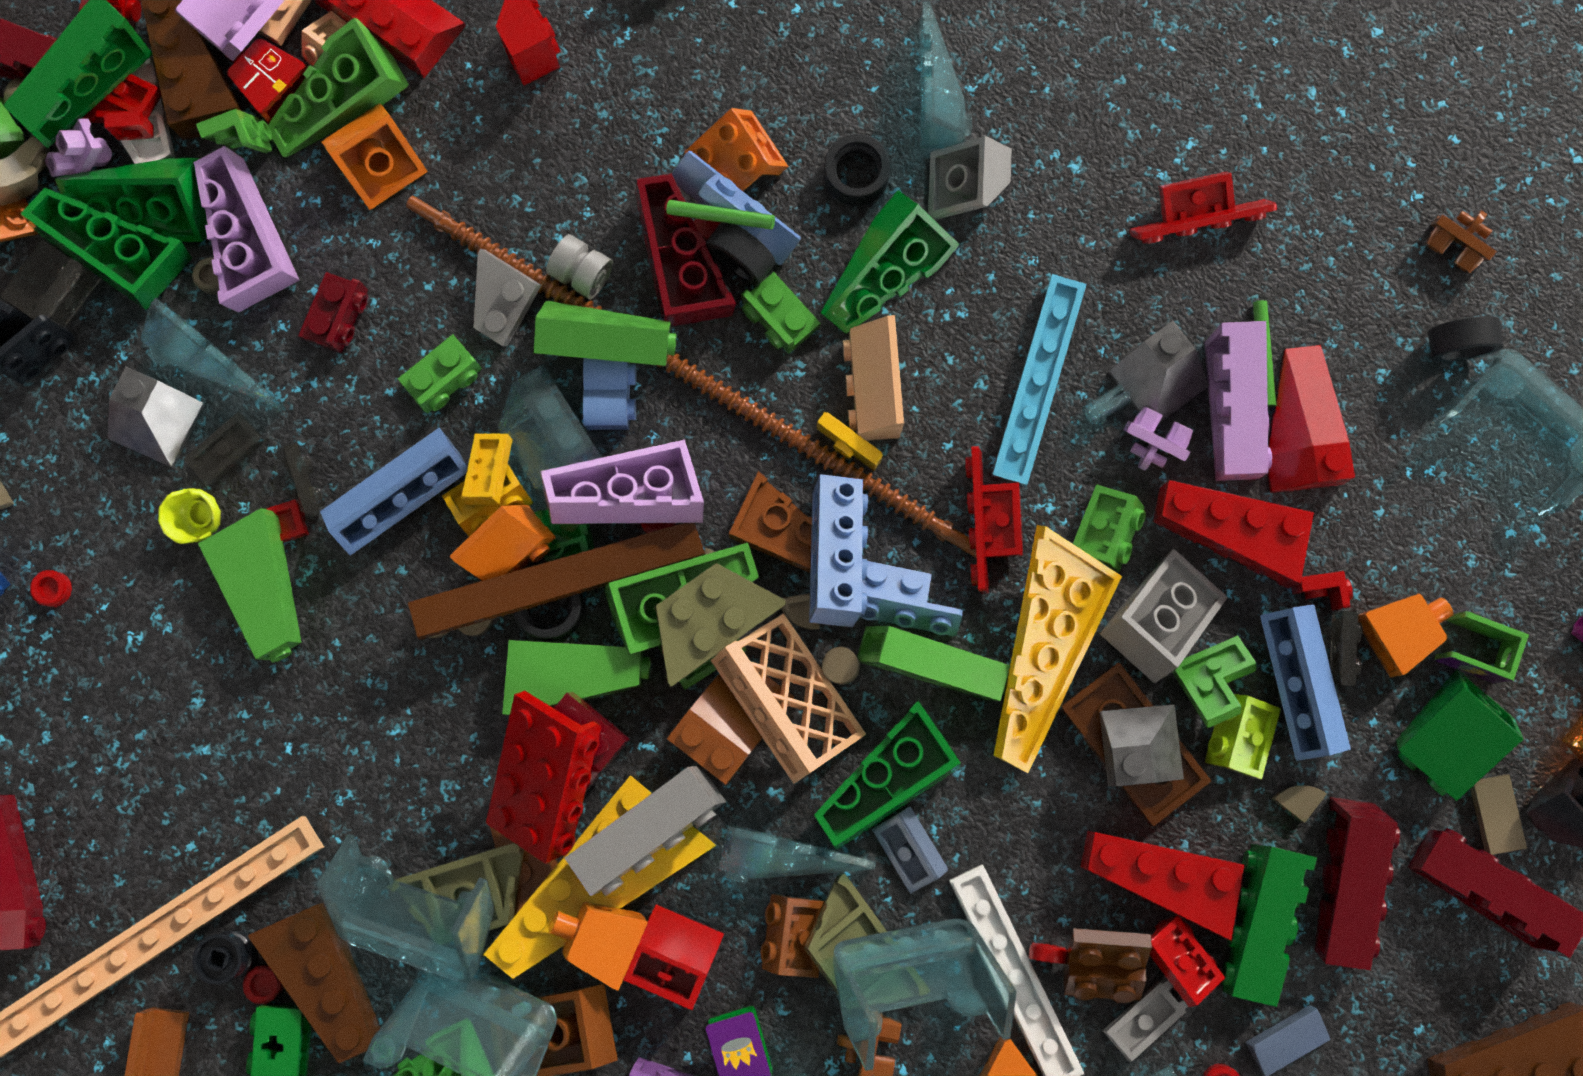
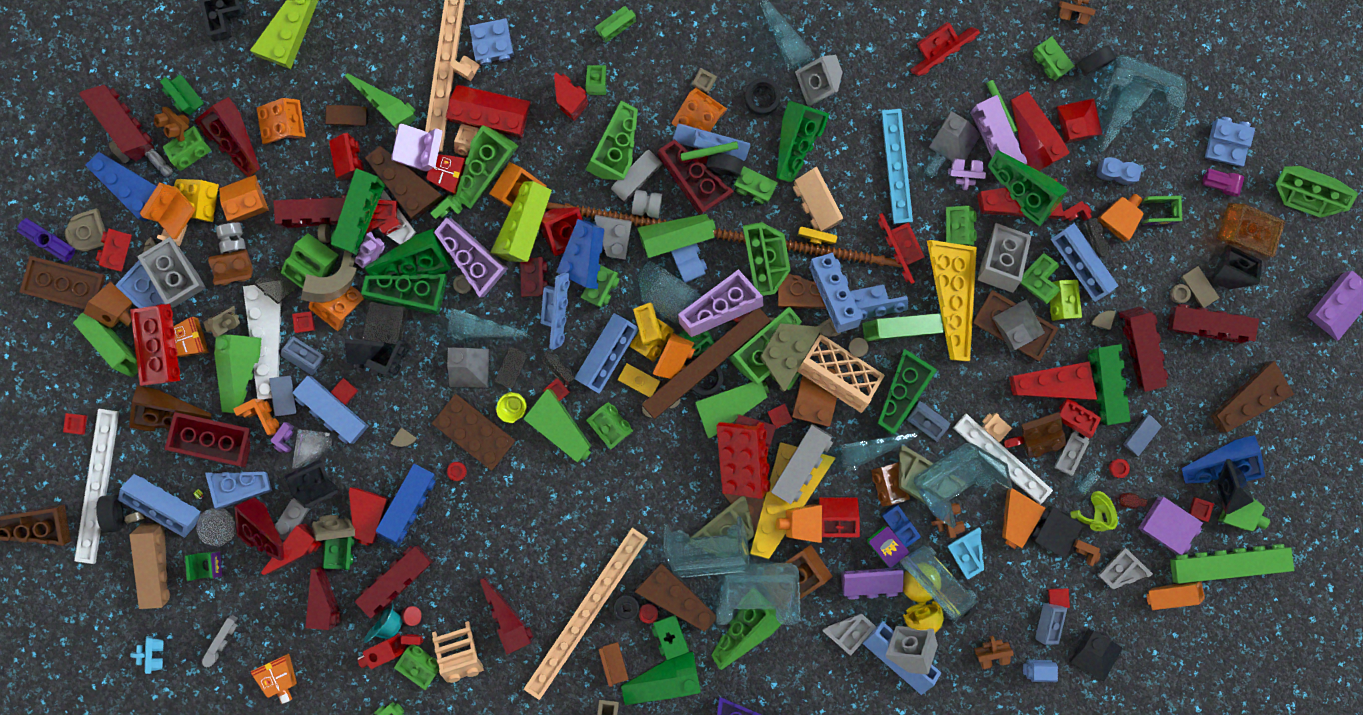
camera: 20 degrees left, 5 degrees up
(111, 533) = (474, 432): none -> reddish brown plate
(340, 379) = (554, 309): none -> medium blue bracket
(346, 618) = (609, 425): none -> bright green bracket
(351, 208) = (522, 223): none -> lime wedge
(419, 251) = (558, 227): none -> red slope
(427, 304) = (583, 254): none -> blue wedge
(432, 561) = (638, 380): none -> yellow plate
(567, 151) = (616, 146): none -> bright green wedge
(585, 212) = (636, 175): none -> light grey beam
(587, 32) = (596, 80): none -> bright green slope
(650, 729) = (780, 416): none -> red tile
(742, 437) = (766, 256): none -> bright green wedge
(770, 106) = (704, 81): none -> dark tan tile
(781, 1019) = (900, 525): none -> blue slope
(1026, 911) = (995, 426): none -> light nougat bracket
(1261, 510) = (1029, 187): none -> green wedge
(1386, 308) = (1052, 58): none -> bright green bracket
(1391, 433) = (1079, 120): none -> red slope
(1434, 552) = (1114, 169): none -> medium blue brick
(1457, 814) = (1180, 294): none -> dark tan tile
(1458, 737) = (1166, 257): green slope -> none
(1485, 435) = (1125, 102): none -> clear light blue wedge

